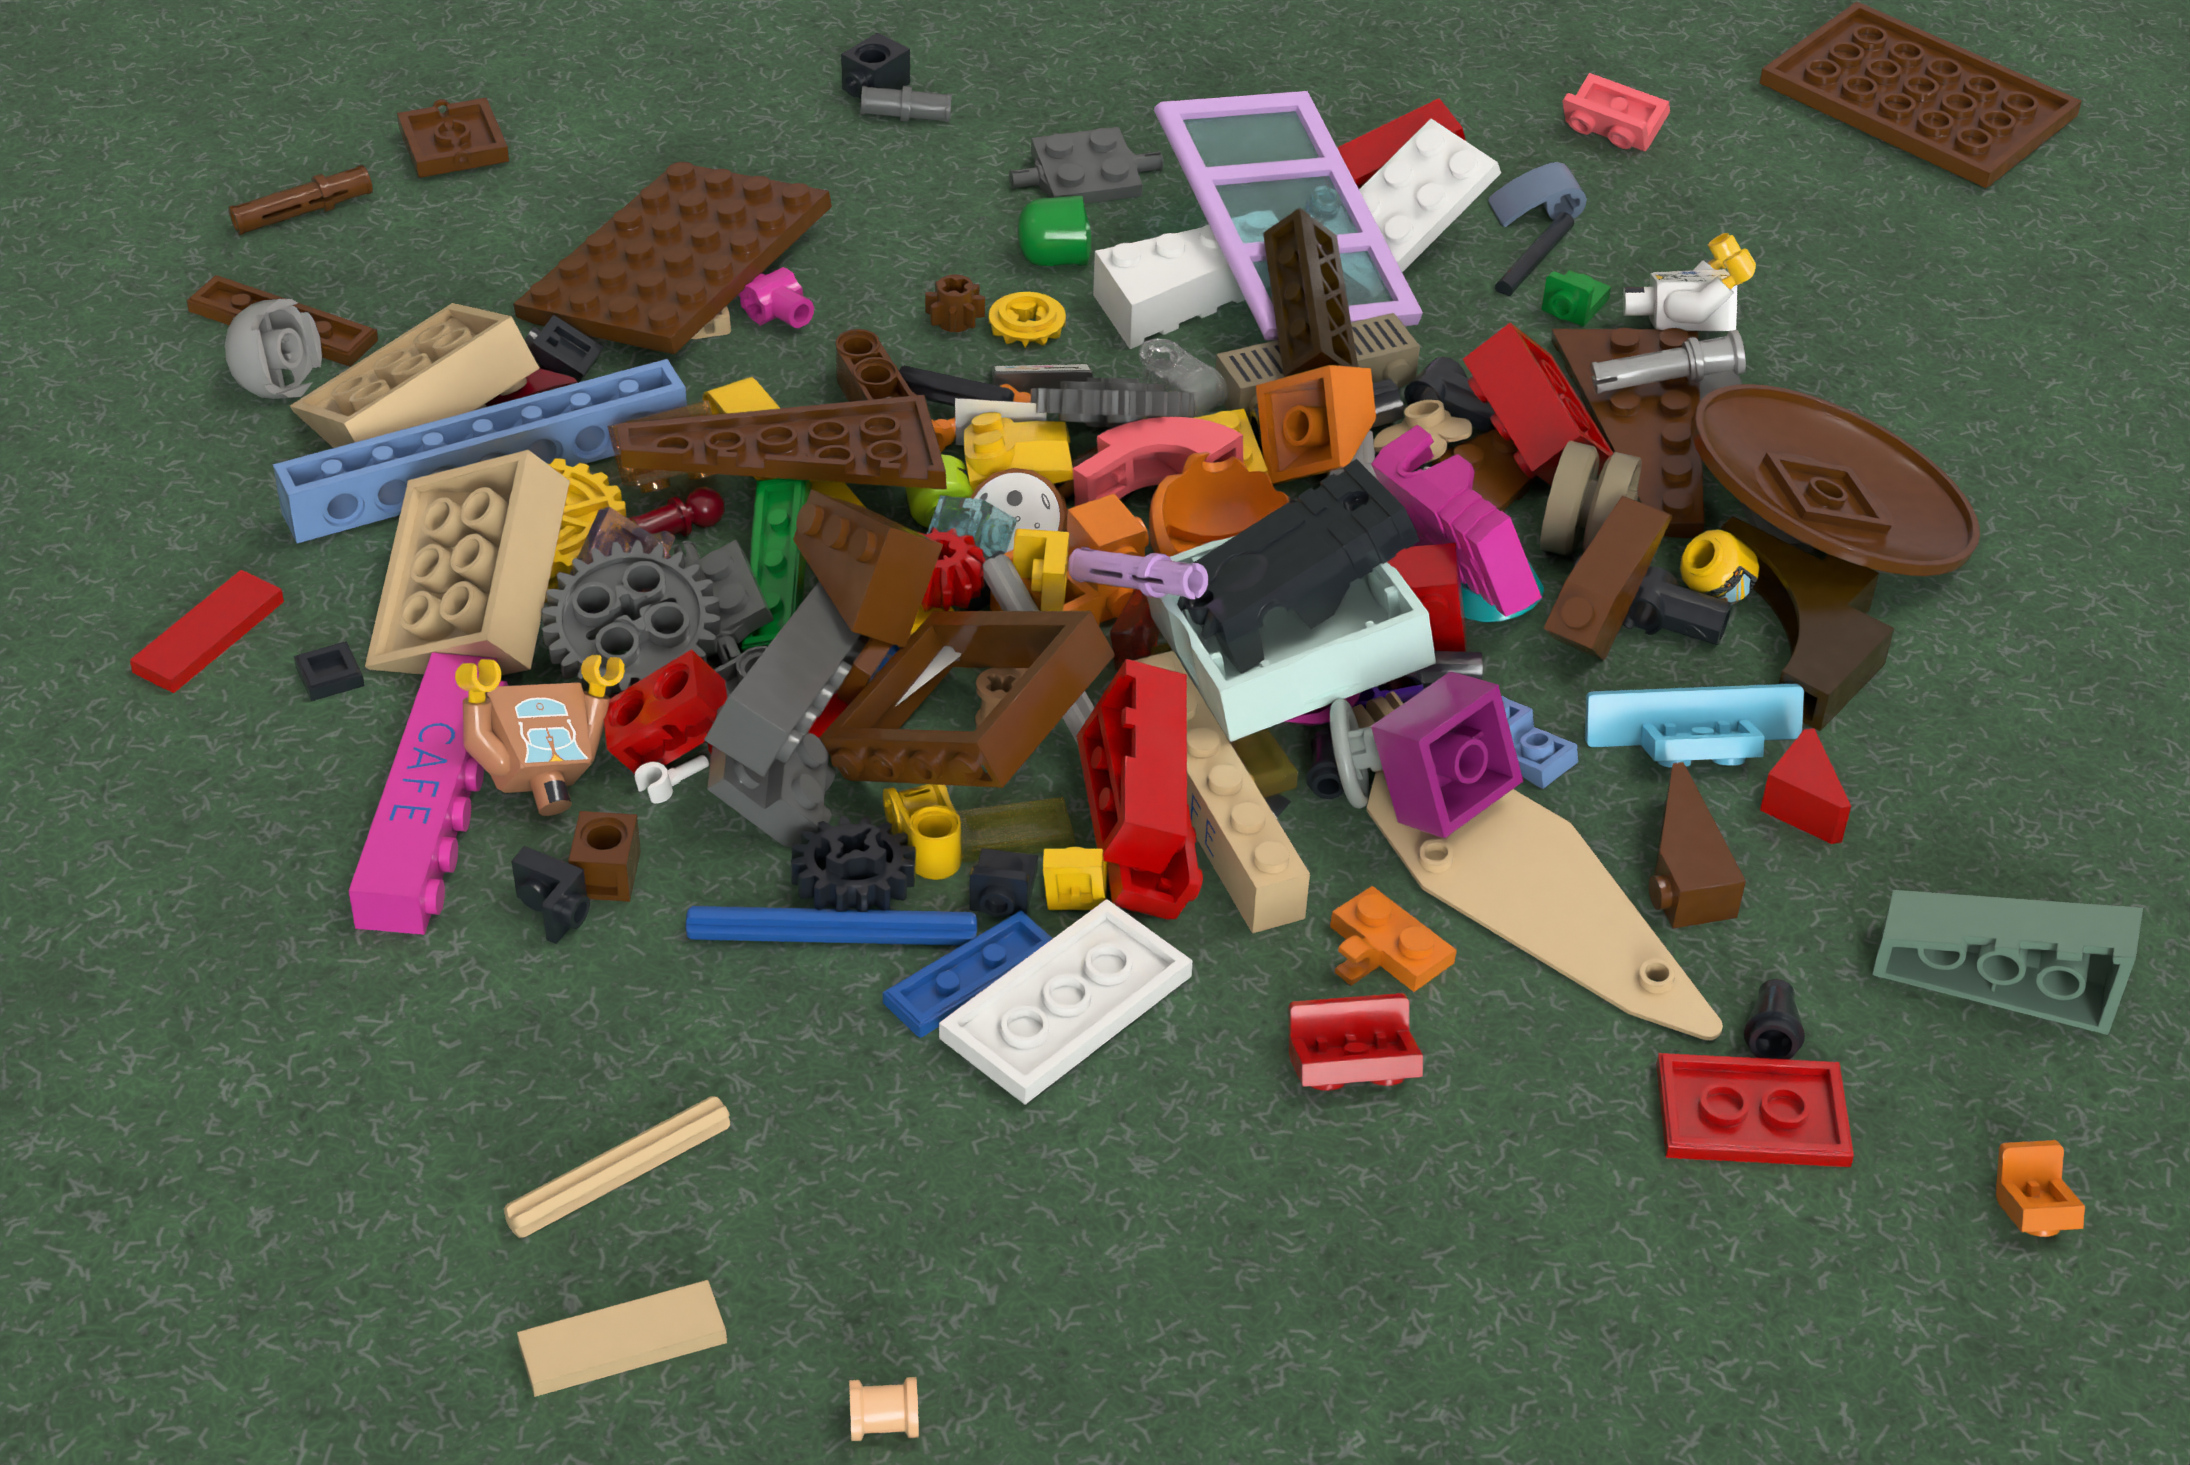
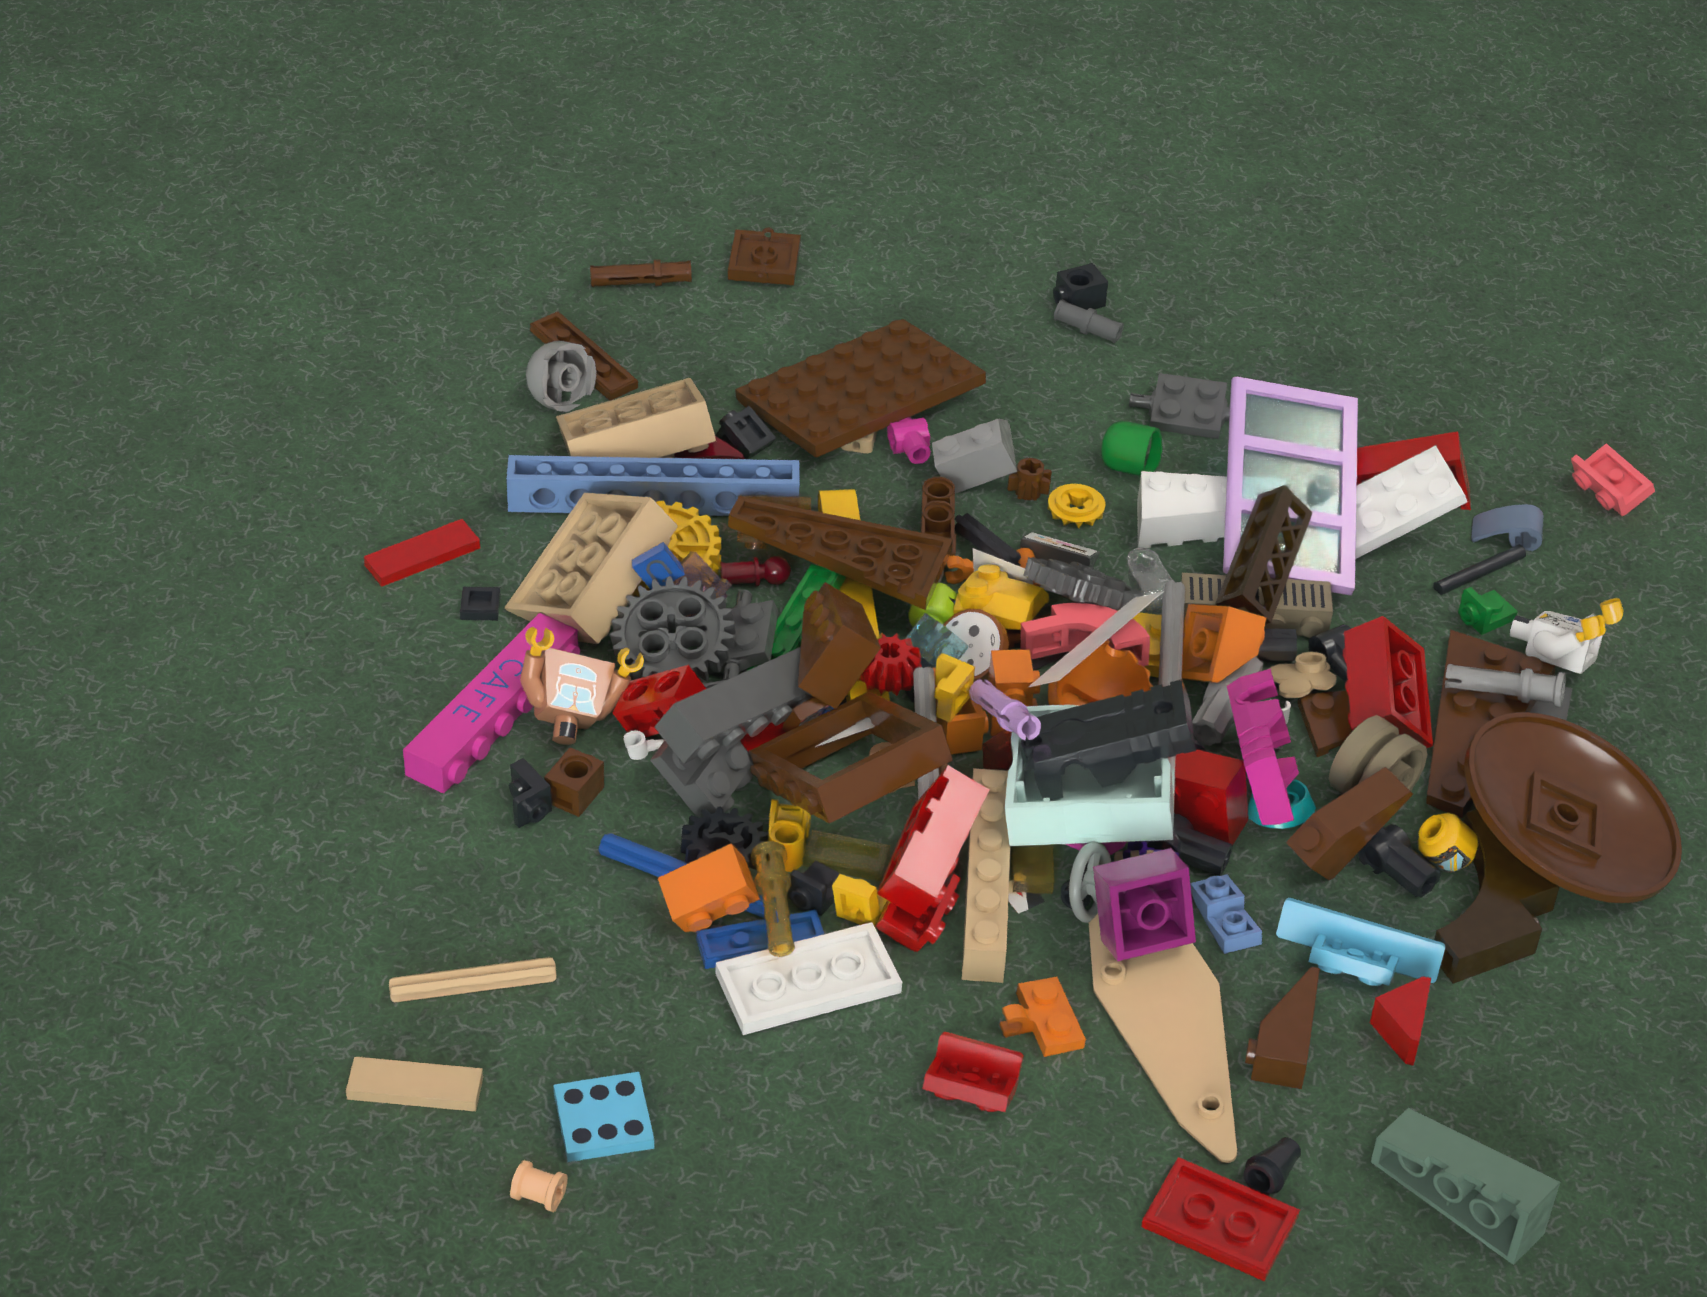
camera: 25 degrees right, 0 degrees up
(571, 537) = (658, 565): none -> blue tile
(878, 291) = (976, 455): none -> light grey slope
(880, 929) = (708, 889): none -> orange brick
(908, 1282) = (603, 1116): none -> medium azure tile
(959, 895) = (780, 933): none -> clear yellow pin
(1189, 456) = (1095, 639): none -> white sticker
(1256, 432) = (1172, 633): none -> light grey axle

